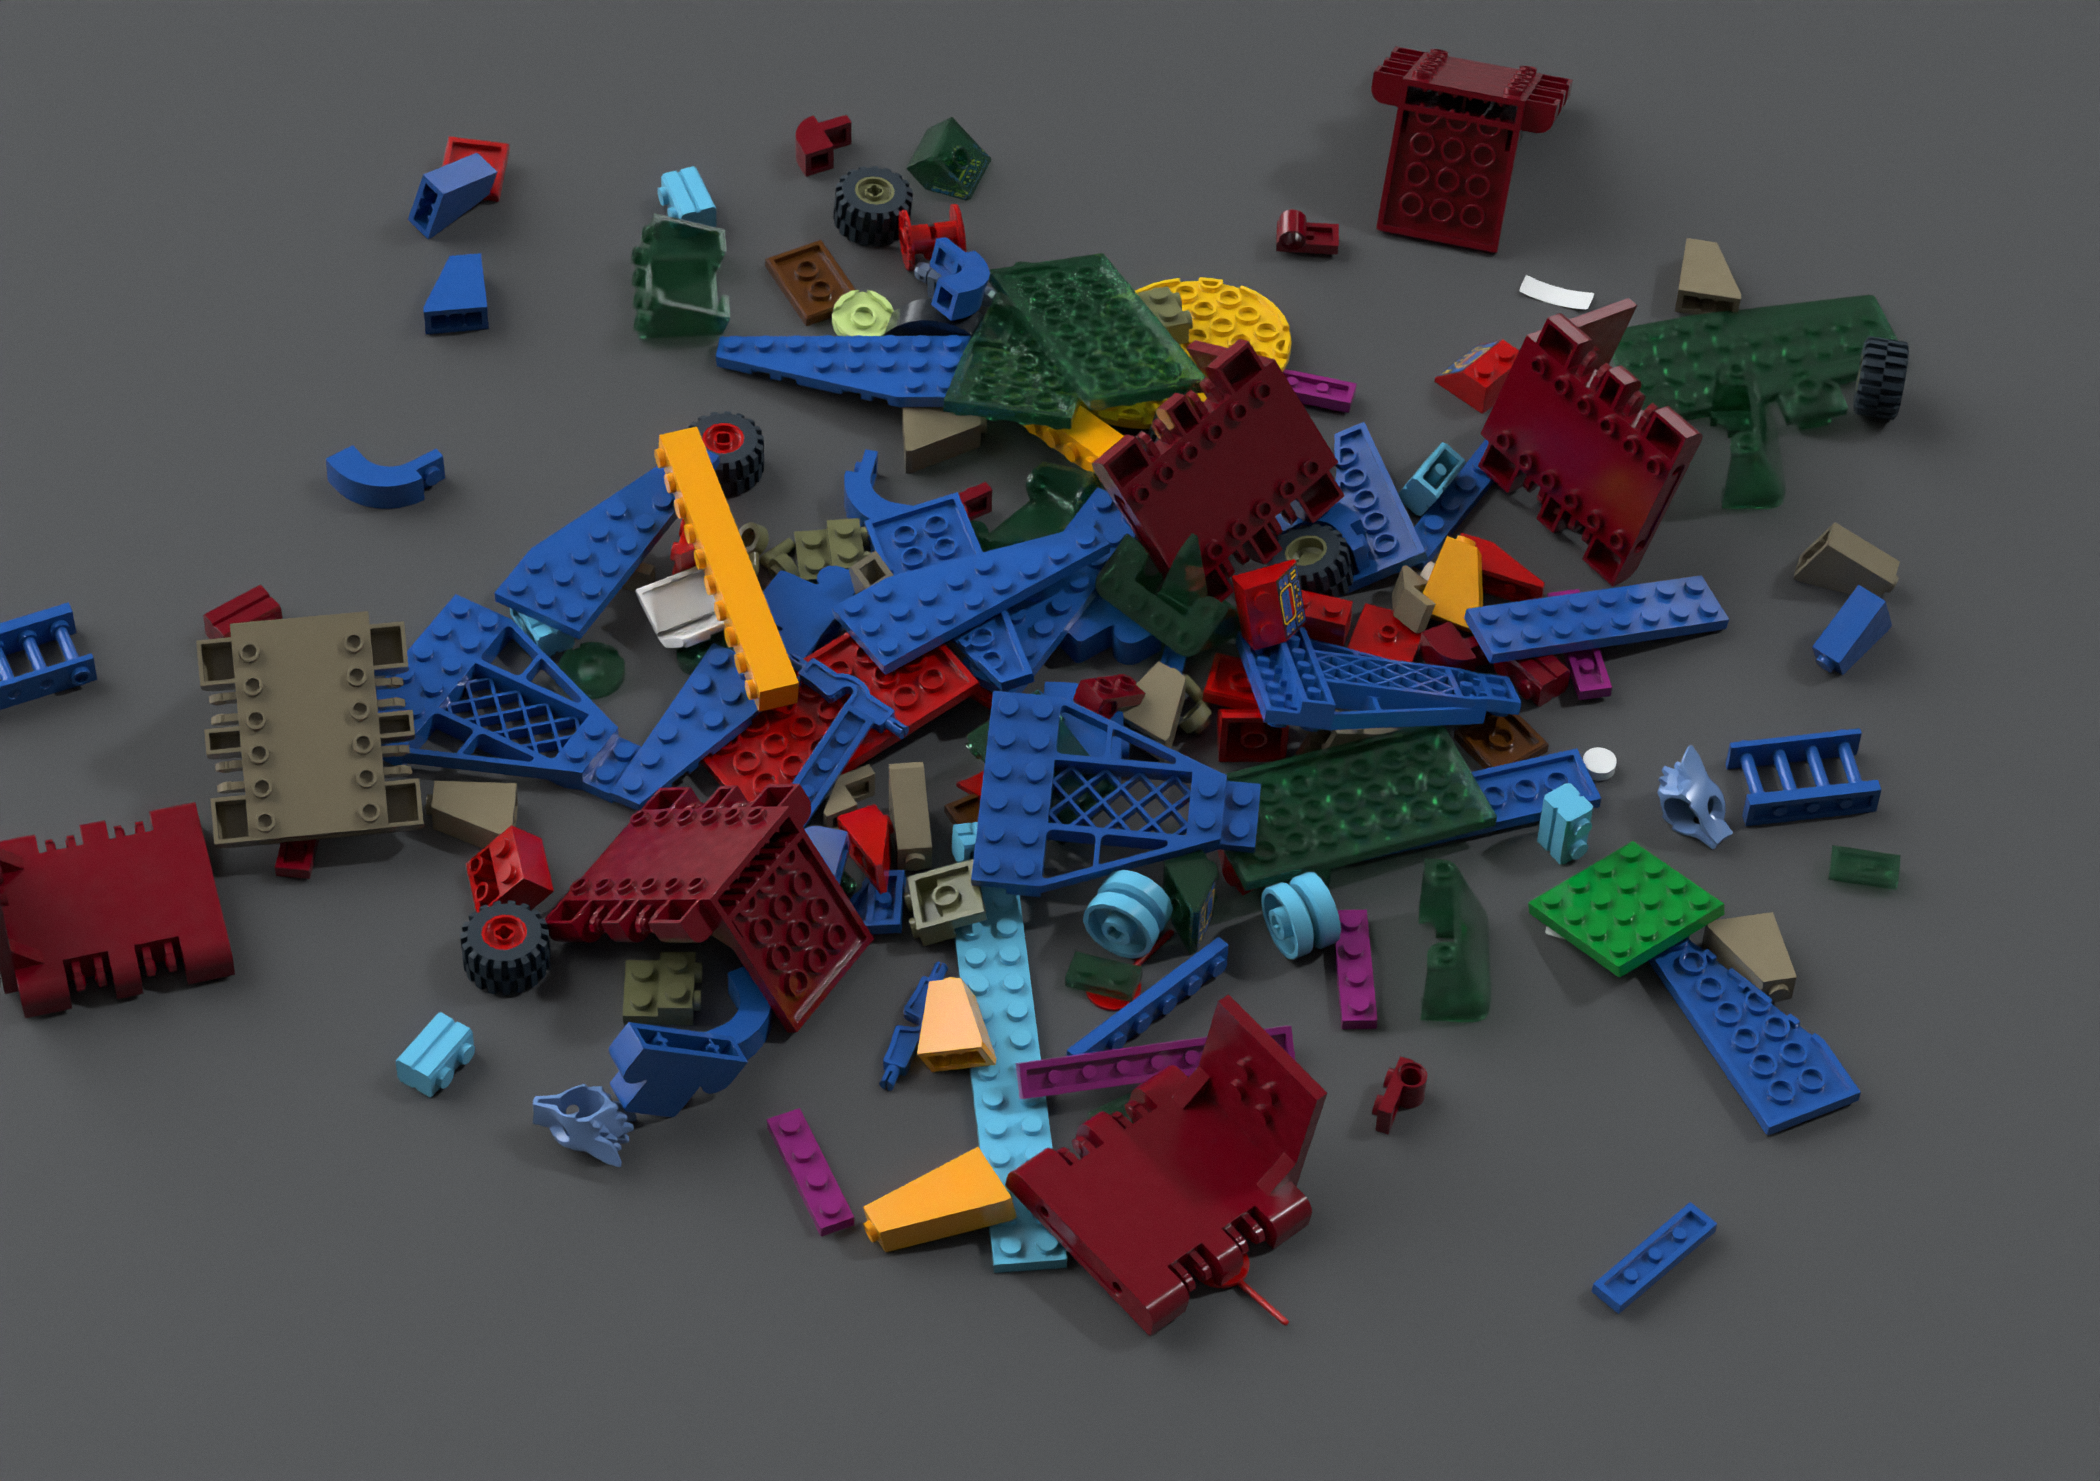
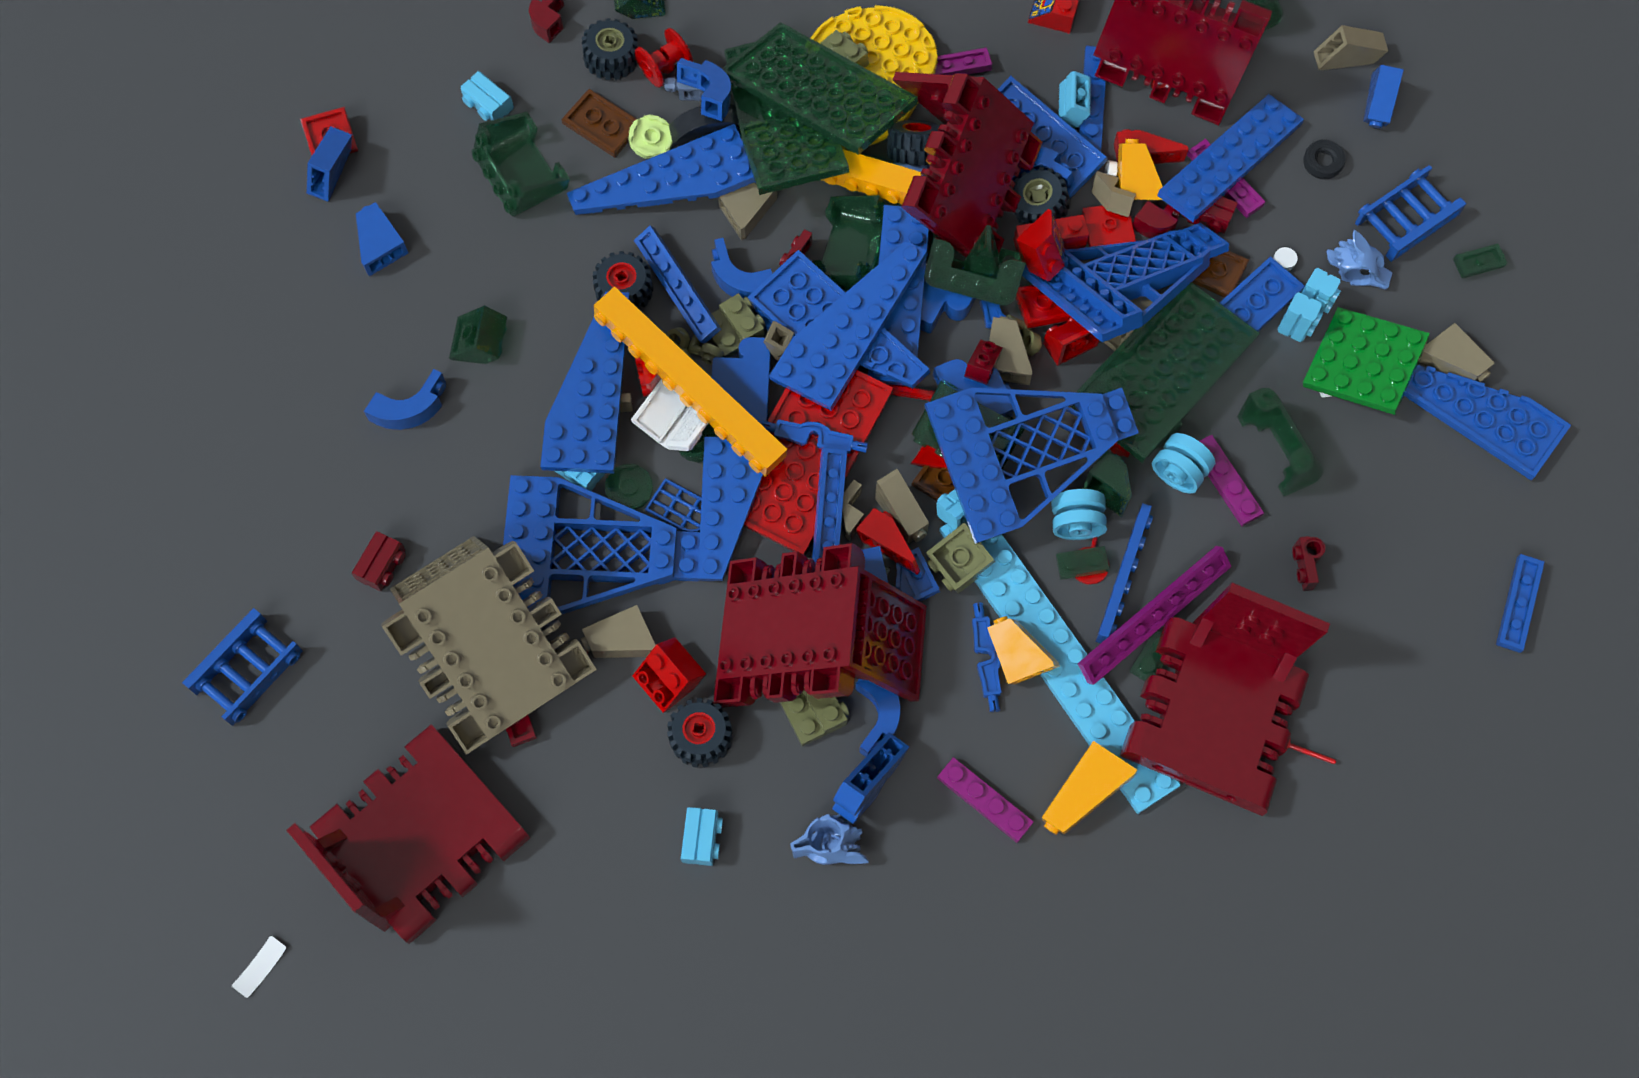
camera: 25 degrees left, 20 degrees up
(515, 442) = (478, 336): none -> clear green slope
(629, 713) = (692, 508): none -> blue window
(789, 481) = (677, 285): none -> blue plate
(1612, 807) = (1323, 289): none -> medium azure brick
(1725, 691) = (1330, 148): none -> black tyre

